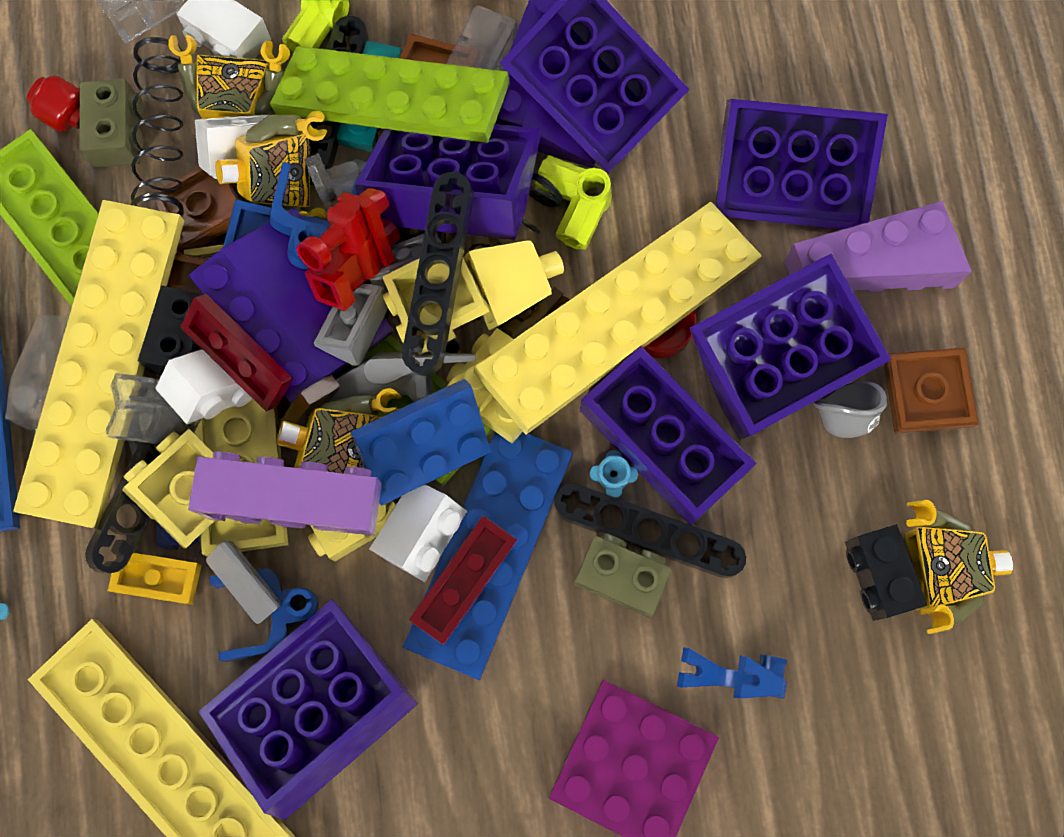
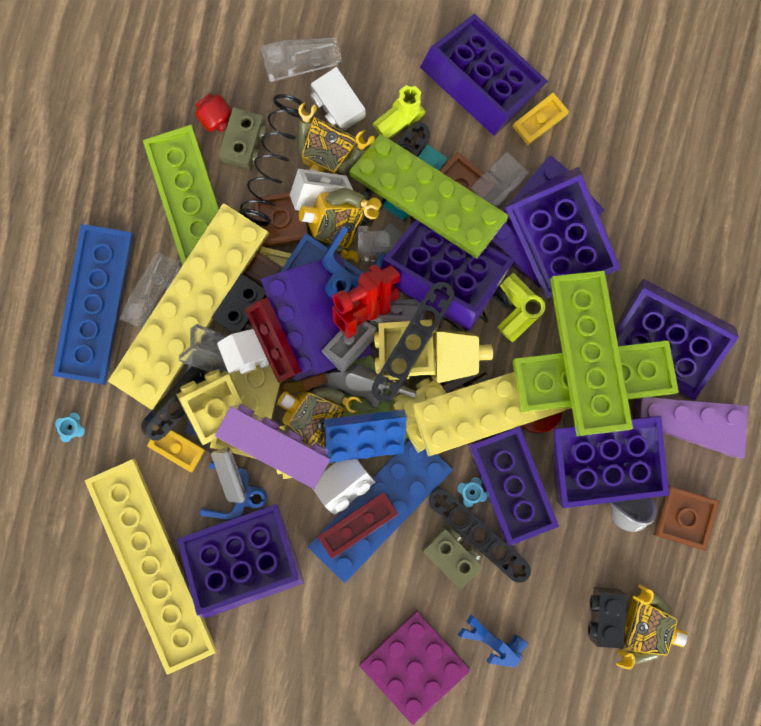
camera: 20 degrees right, 10 degrees up
(698, 206) = (591, 353): none -> lime plate
(715, 238) = (544, 384): none -> lime plate

